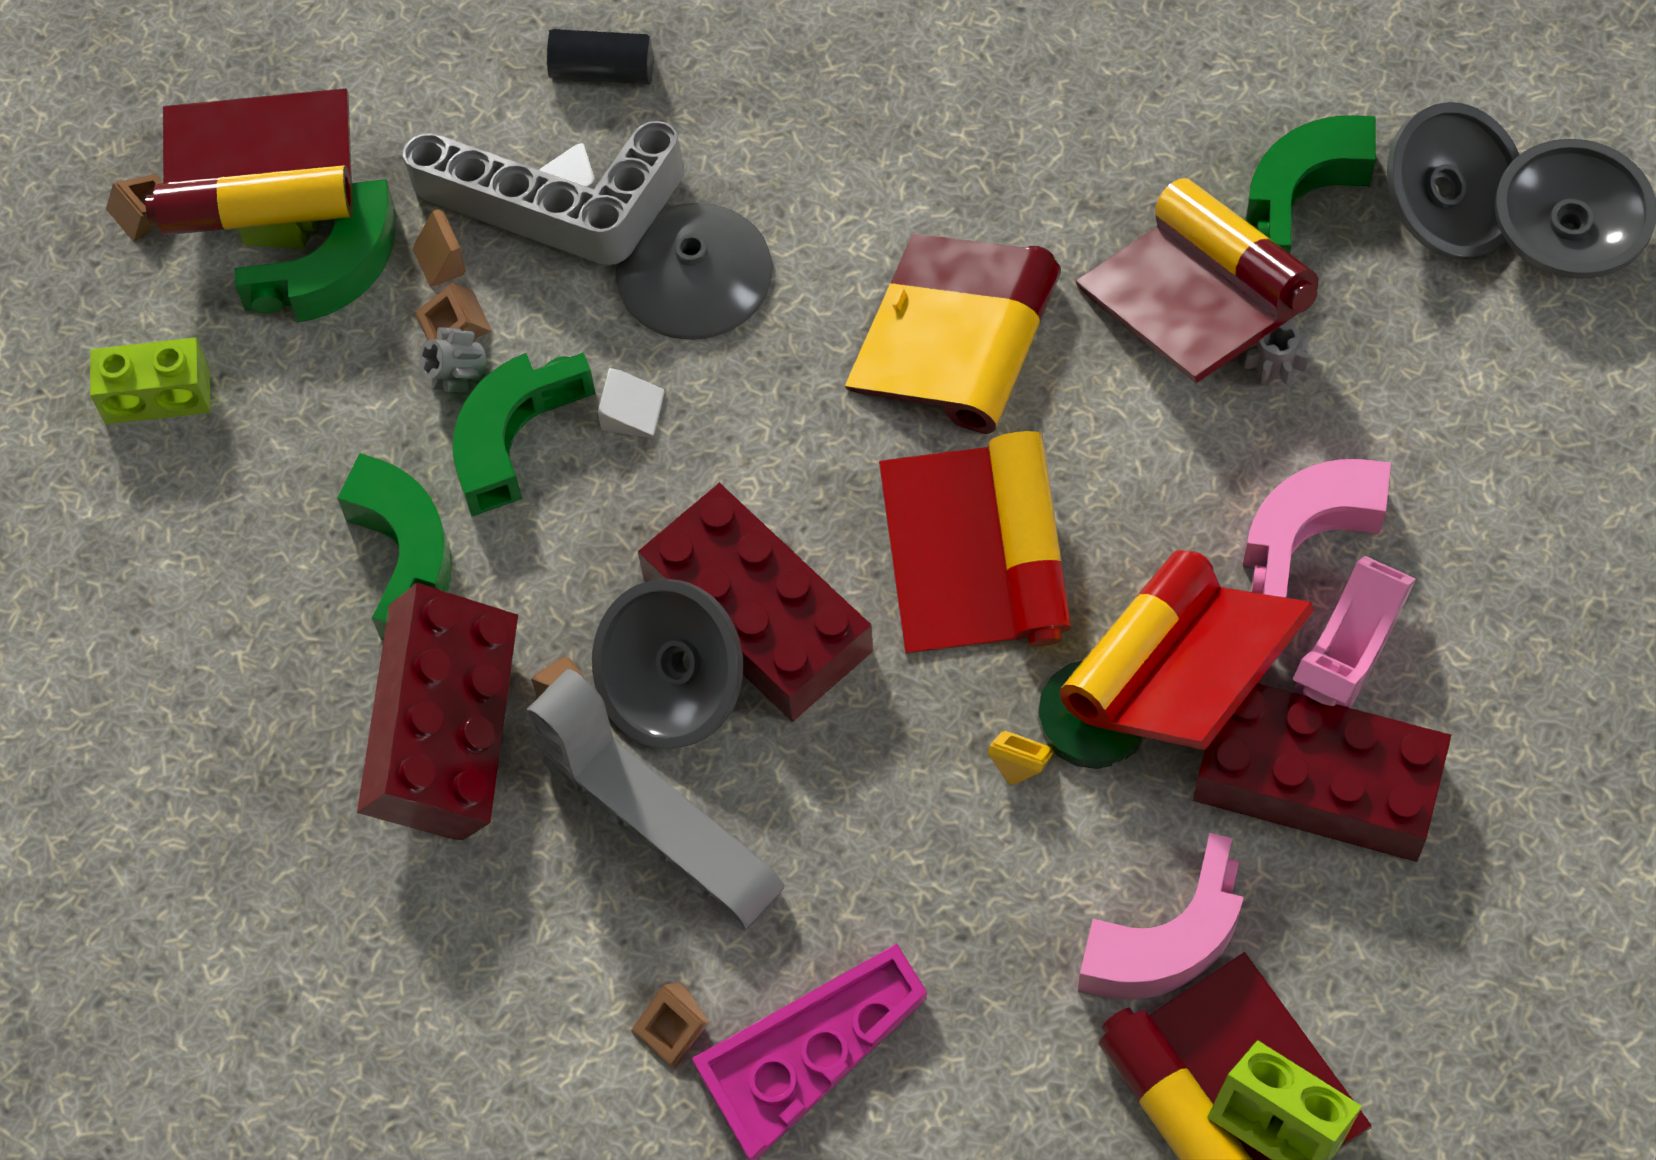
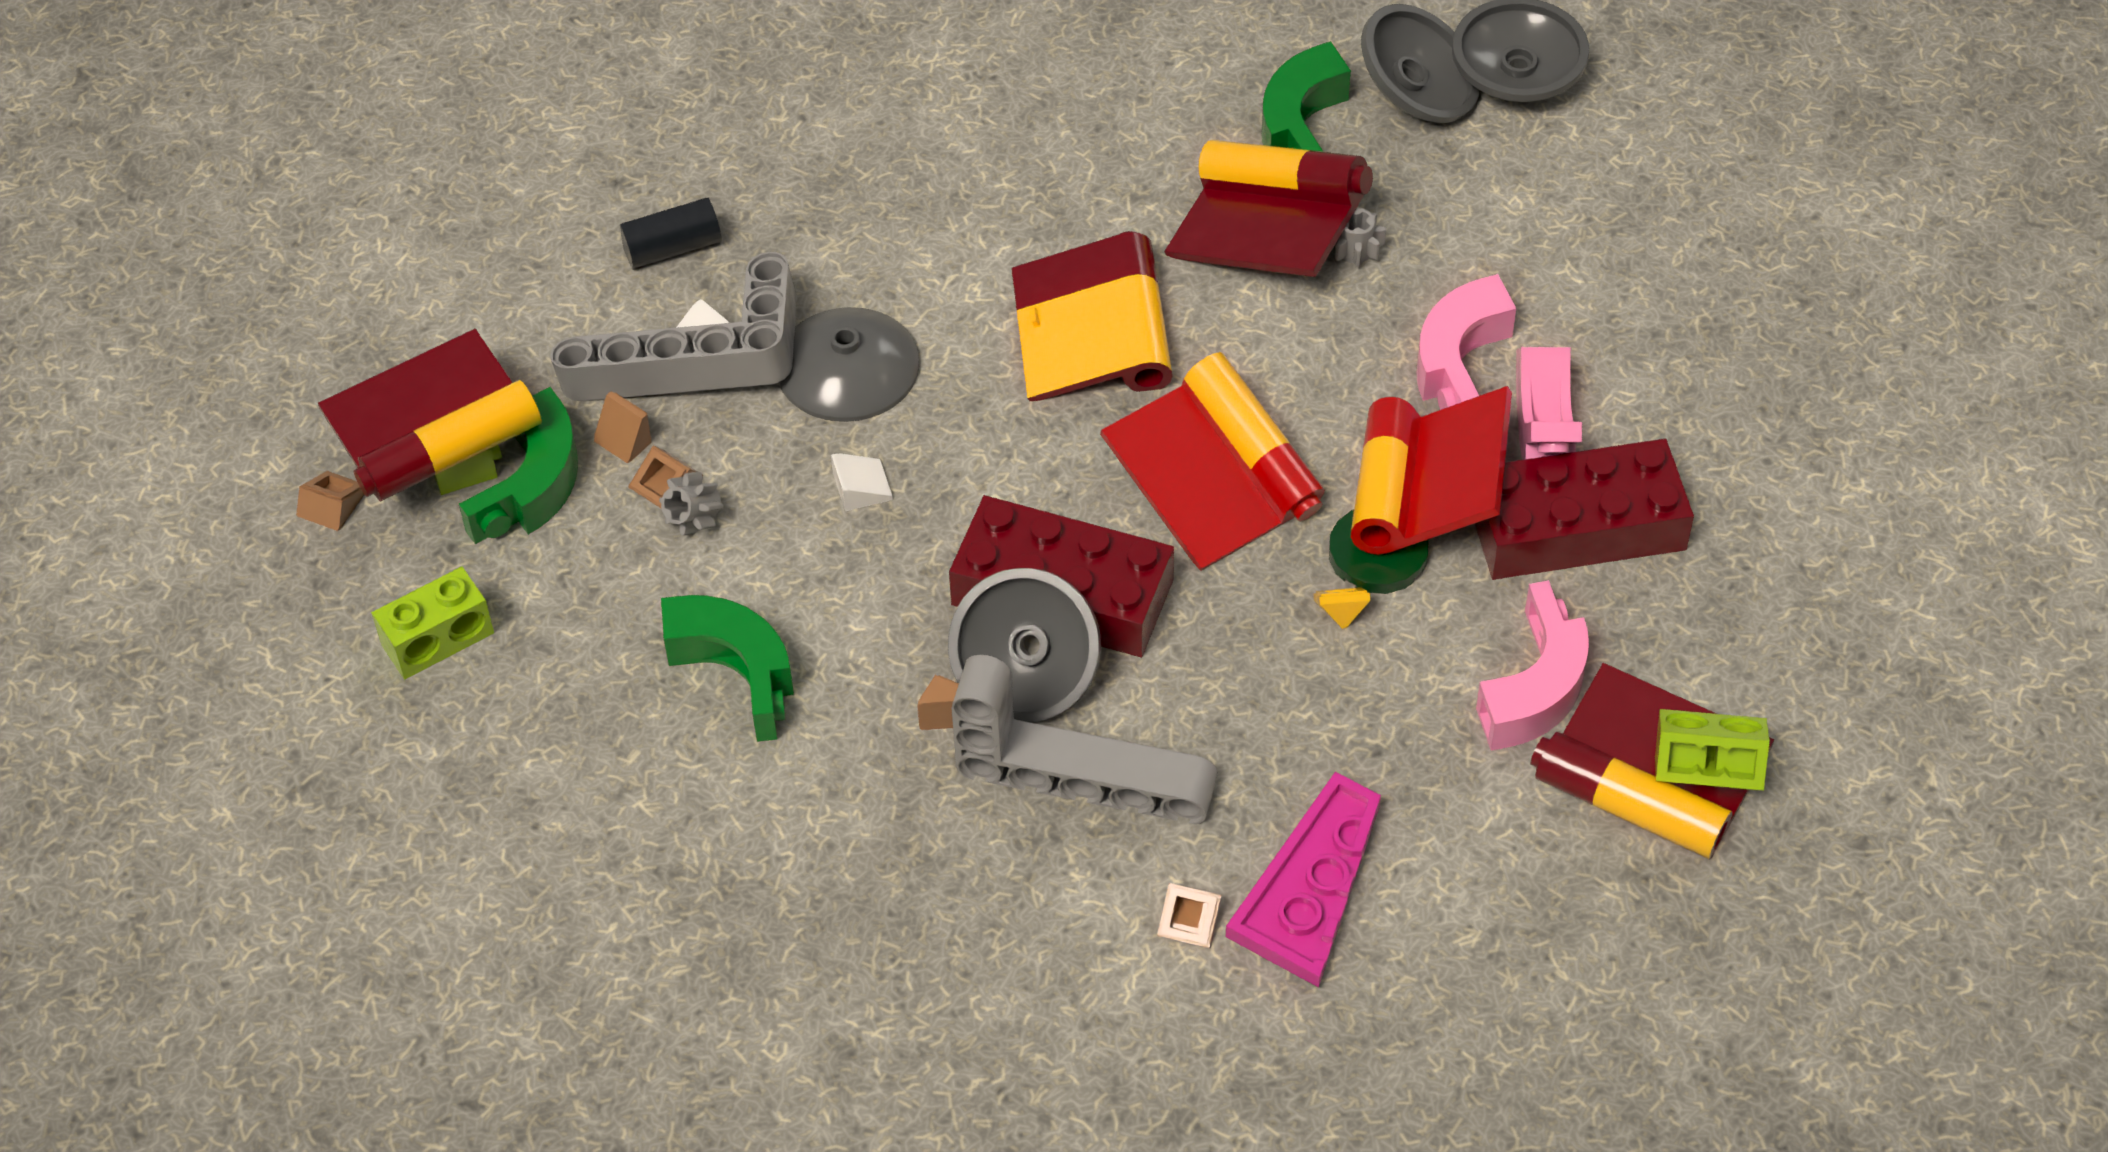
camera: 30 degrees left, 10 degrees down
(438, 713) = (857, 761): dark red brick -> none
(497, 413) = (763, 564): green arch -> none

